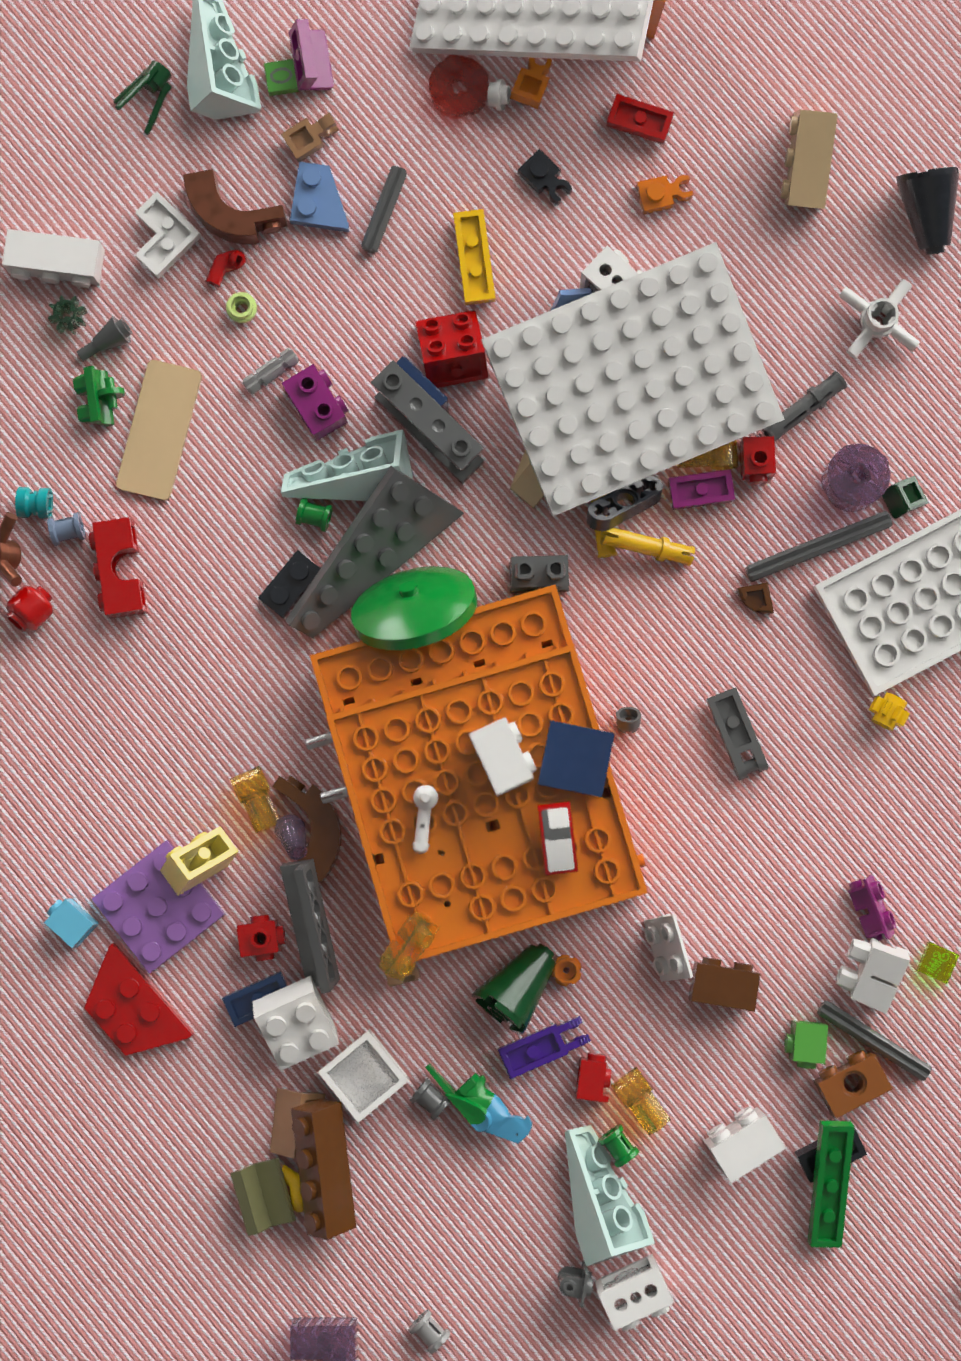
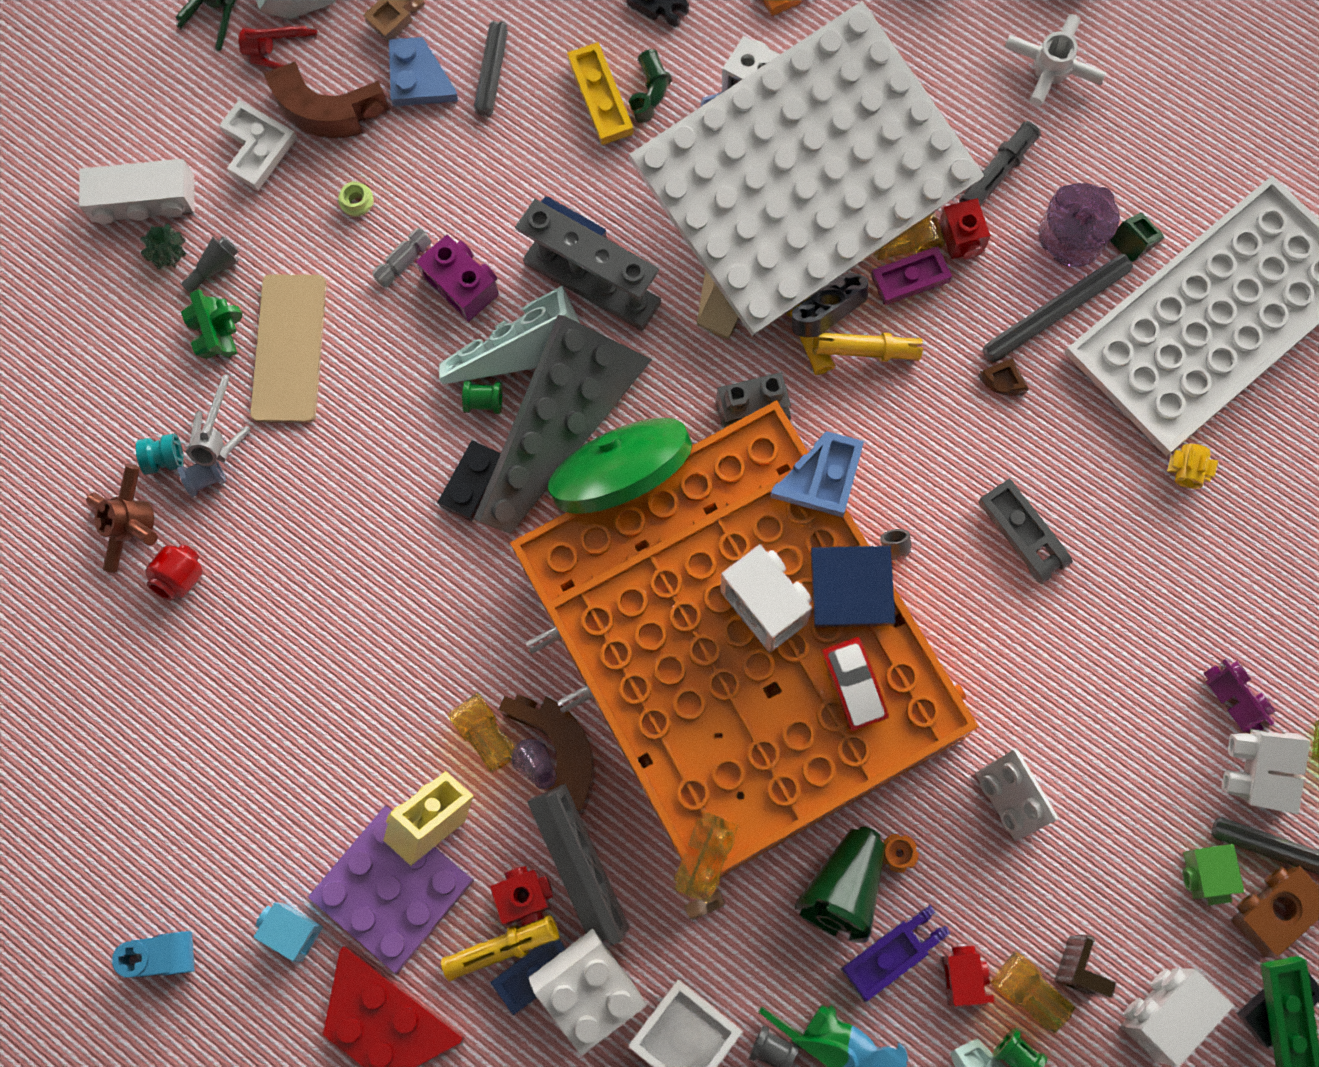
camera: 10 degrees left, 10 degrees down
(76, 508) = (207, 444): none -> light grey plant
(112, 541) = (258, 476): red arch -> none
(185, 136) = (259, 42): none -> red plant
(225, 263) = (328, 159): red arm -> none
(246, 972) = (513, 943): none -> yellow pin
(425, 798) = (685, 673): white piece -> none
(452, 349) = (600, 189): red bracket -> none
(526, 259) = (656, 84): none -> dark green piece
(575, 662) = (823, 475): none -> medium blue wing
(674, 1095) = (1073, 971): none -> dark brown panel
(724, 985) = (1095, 825): reddish brown brick -> none

